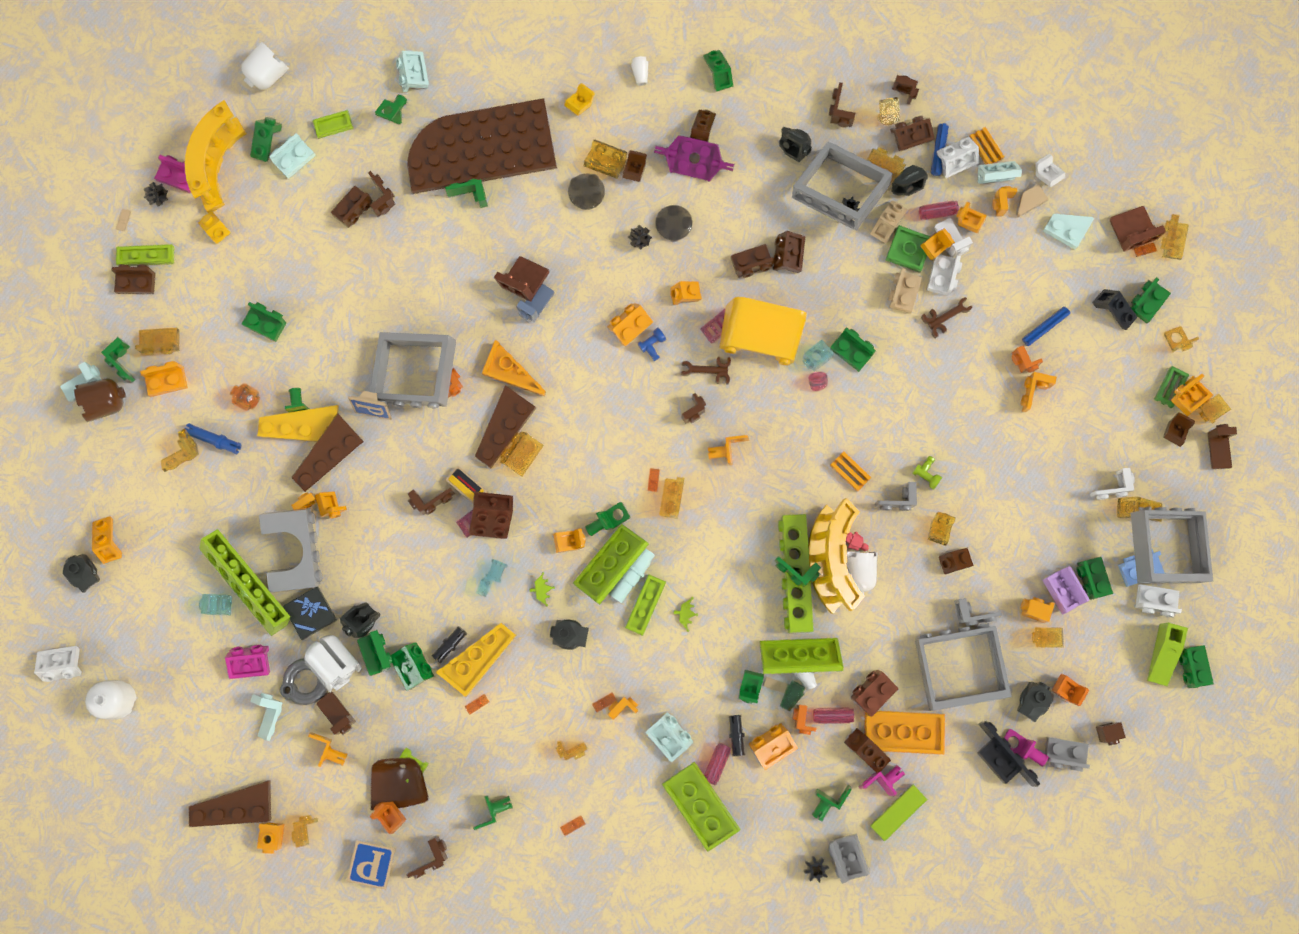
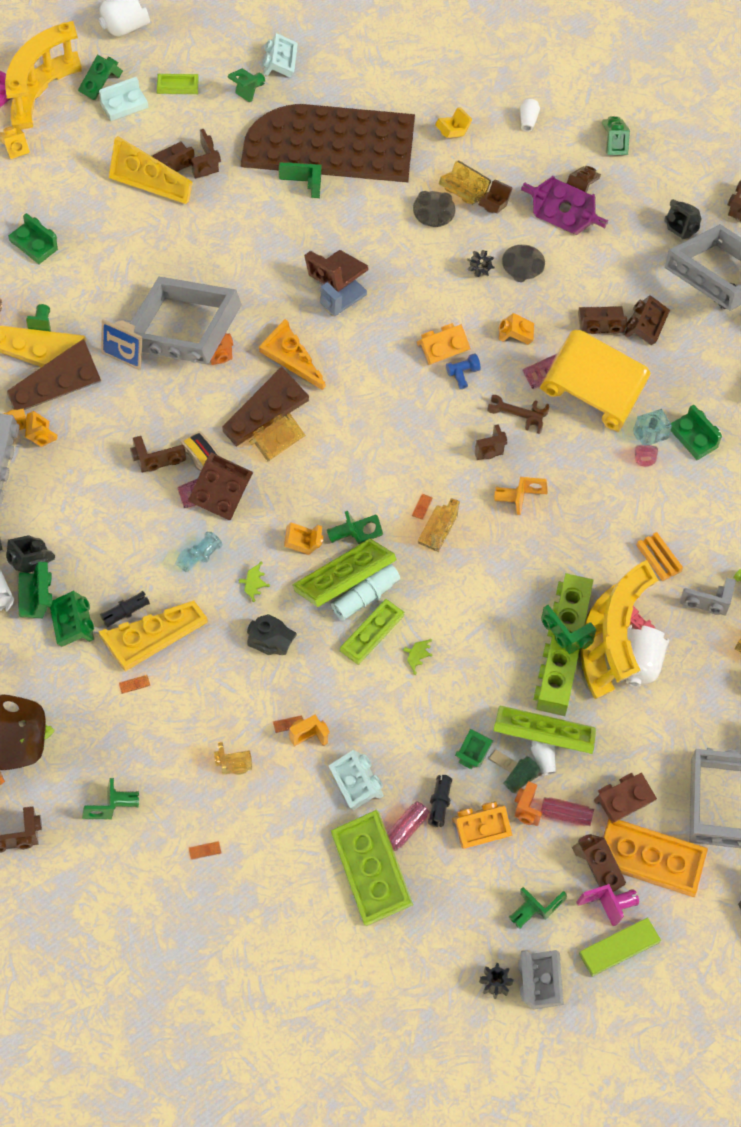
camera: 10 degrees right, 20 degrees down
(335, 229) = (143, 171): none -> yellow wing

